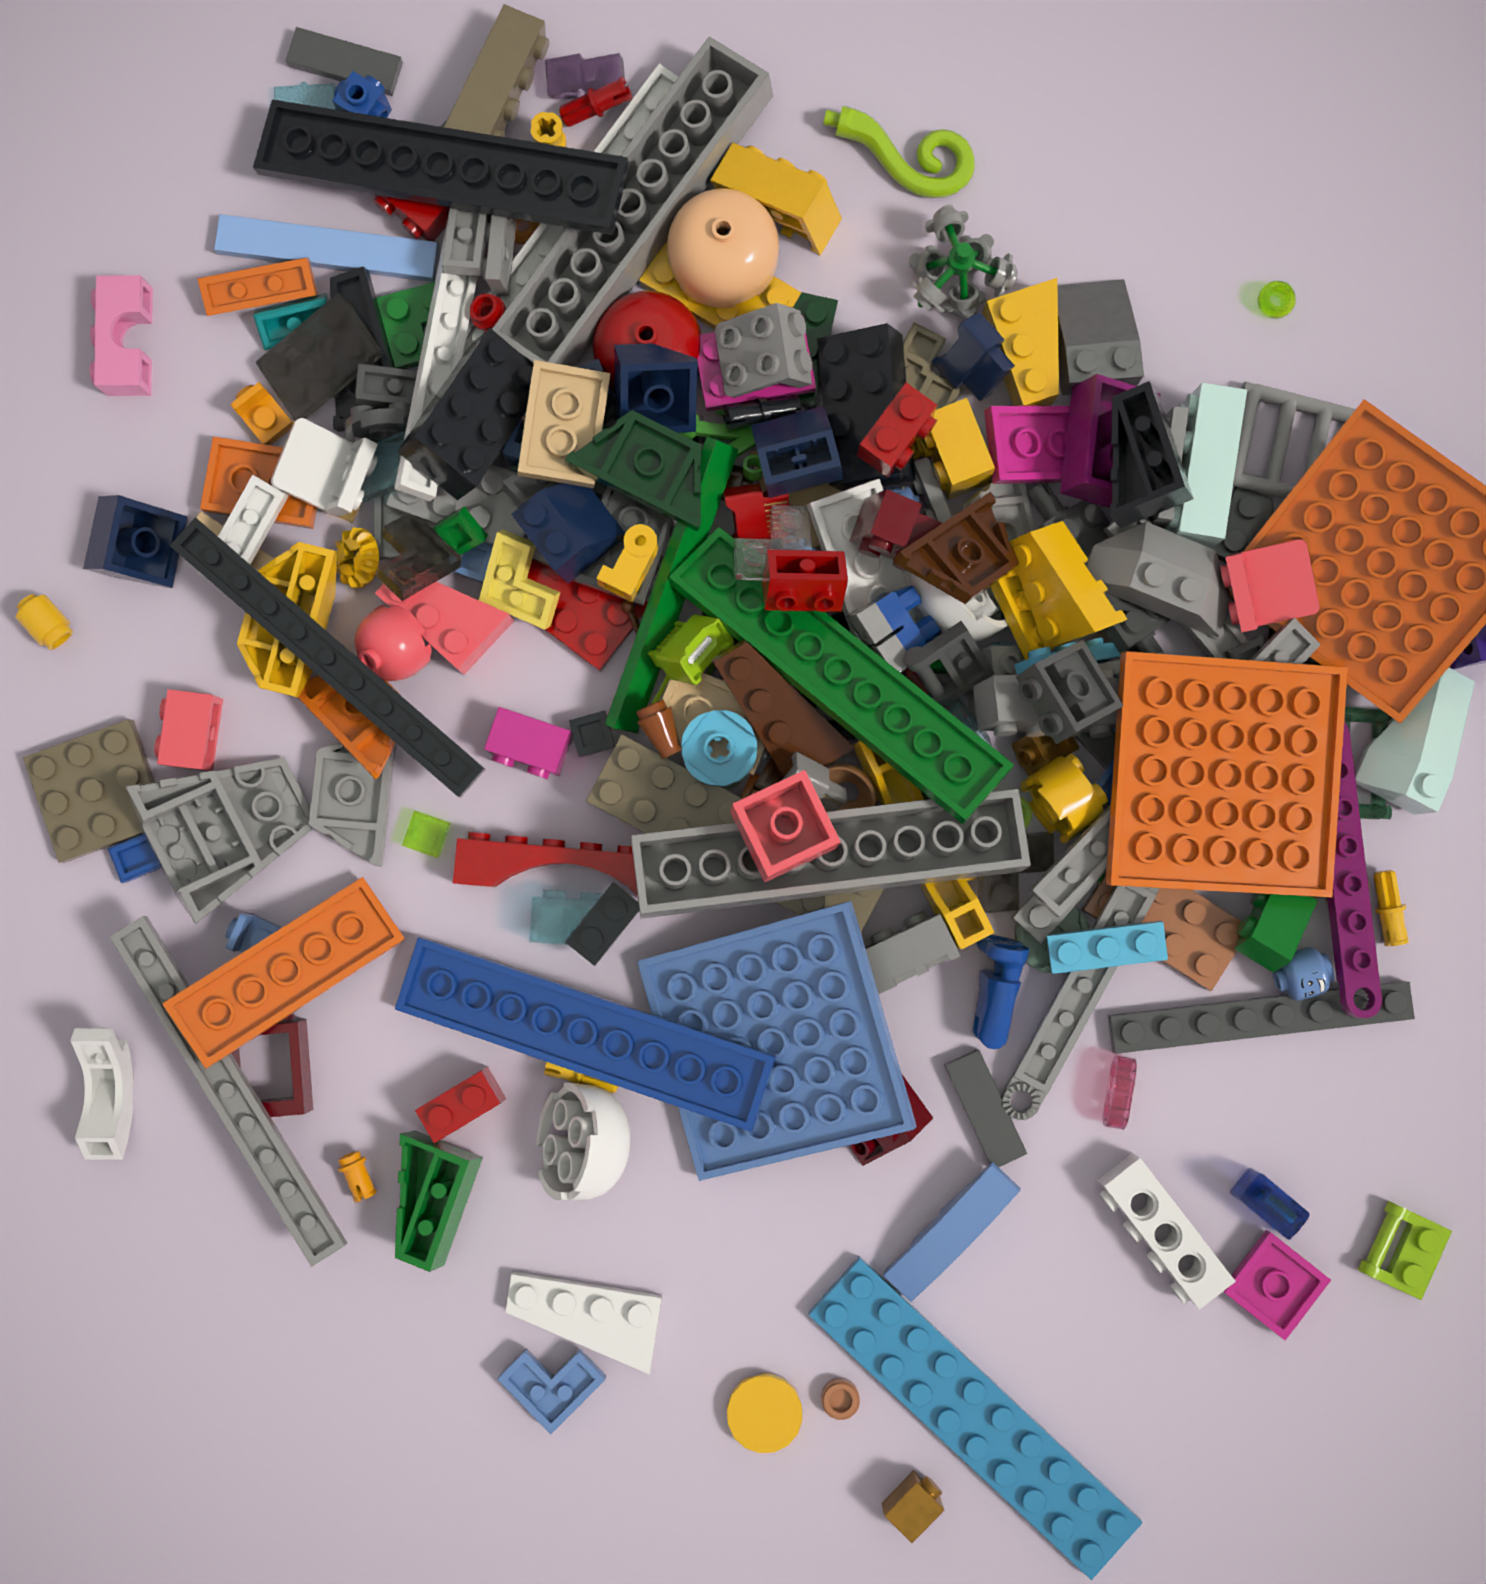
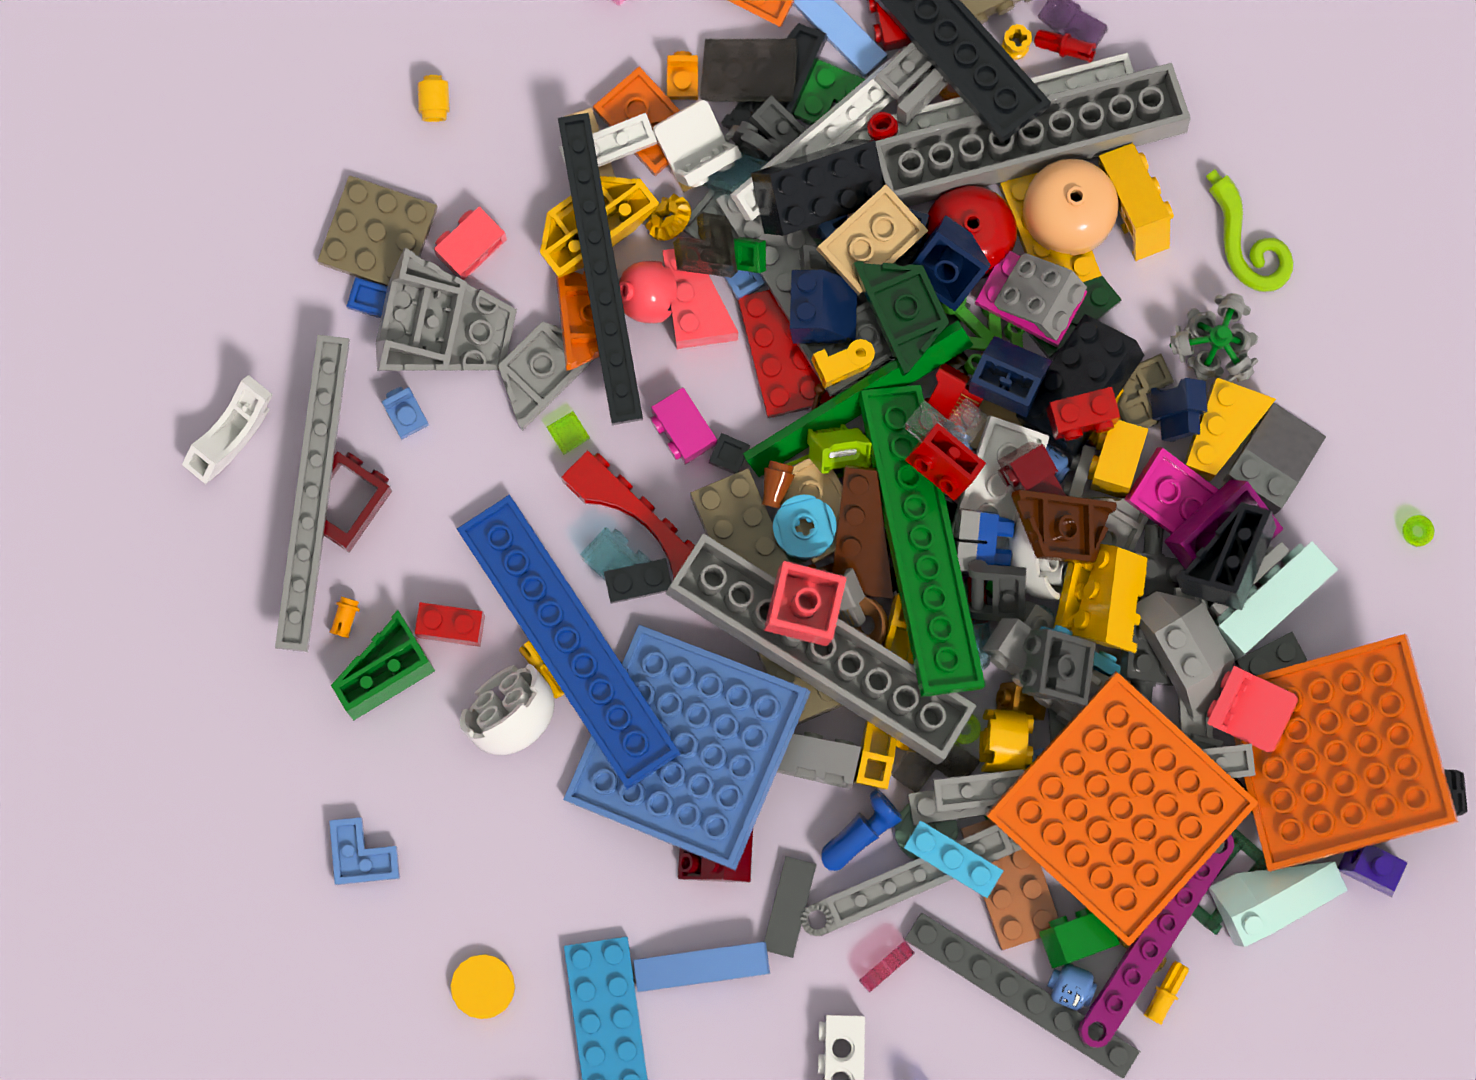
camera: 35 degrees right, 5 degrees down
(134, 541) = (533, 93): dark blue slope -> none
(281, 319) = (746, 25): teal slope -> none
(283, 973) = (408, 446): orange plate -> none
(508, 586) = (752, 316): light yellow plate -> none
(592, 1315) = (426, 838): white wing -> none
(760, 411) = (1009, 331): black pin -> none
(840, 1398) = (539, 1018): nougat tile -> none
(1289, 403) = (1370, 606): light grey bar -> none

